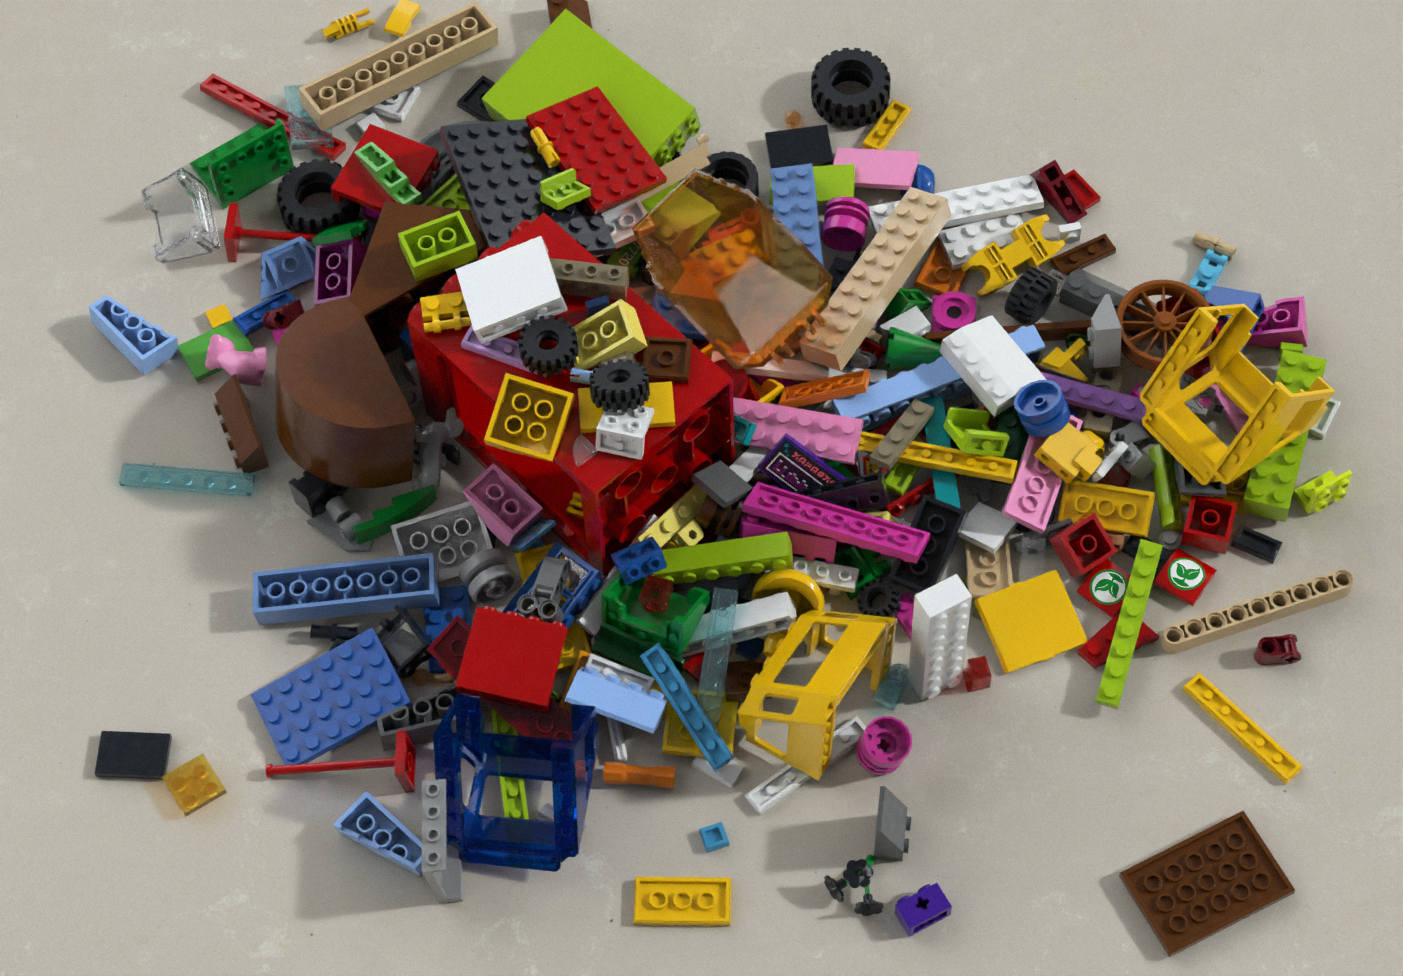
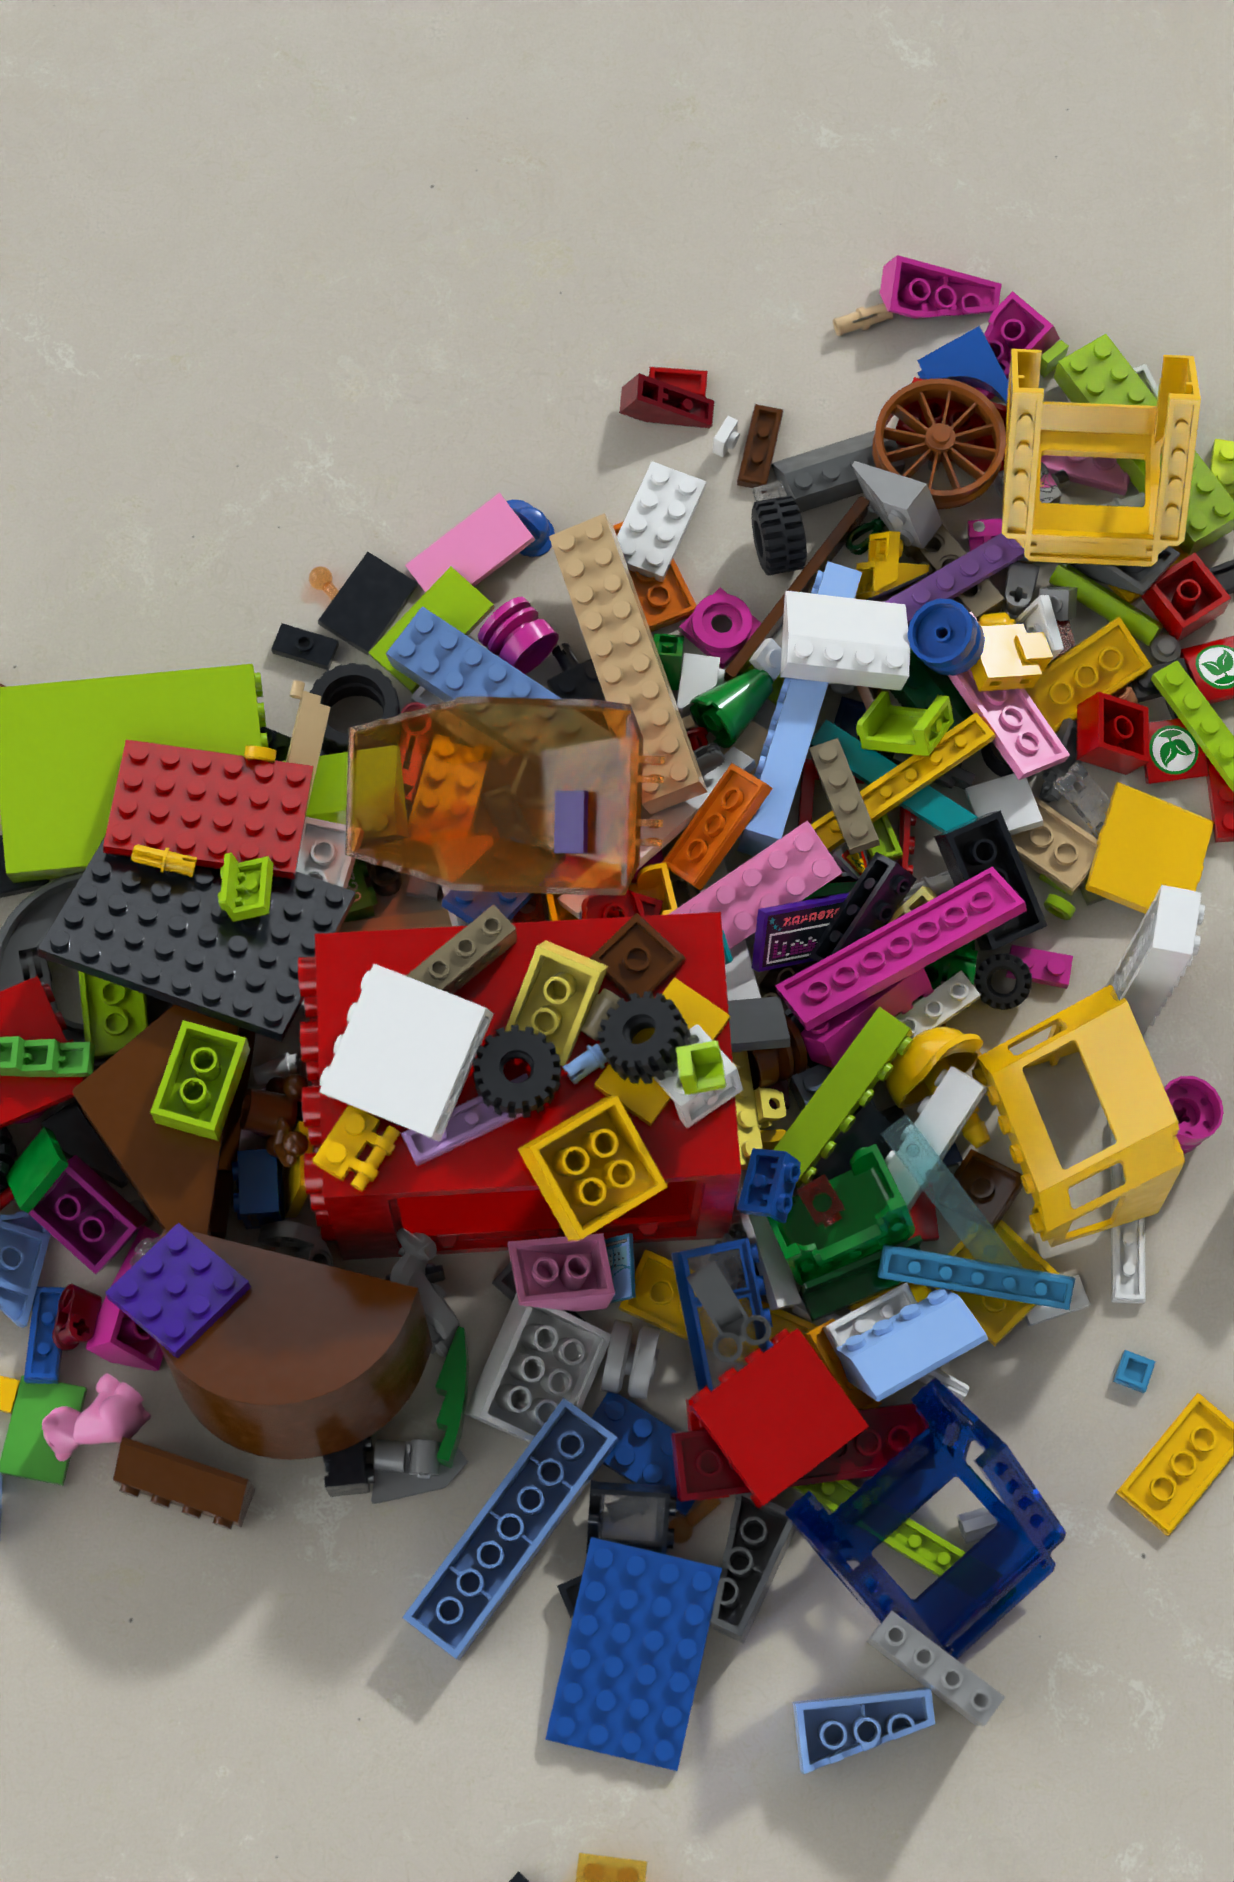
camera: 55 degrees left, 10 degrees up
(187, 479) = (190, 1598): clear light blue tile -> none
(320, 320) = (178, 1290): none -> dark purple plate
(333, 632) = (545, 1583): black pin -> none
(403, 762) = (782, 1636): red tile -> none
(583, 450) = (677, 1142): clear tile -> none
(595, 305) = (507, 978): dark blue tile -> none
(621, 773) = (1003, 1388): orange axle -> none
(622, 417) = (701, 1067): none -> lime panel
(649, 149) = (260, 753): none -> yellow tile
(746, 140) = (305, 646): none -> black plate
(755, 317) = (571, 822): none -> tile
(850, 66) = (341, 456): black tyre -> none
(886, 126) = (422, 497): yellow tile -> none
(978, 202) = (605, 487): white plate -> none
(999, 264) = (704, 529): yellow piece -> none
(1207, 274) = (890, 354): medium azure plate -> none
(1264, 261) = (934, 291): none -> dark pink wedge

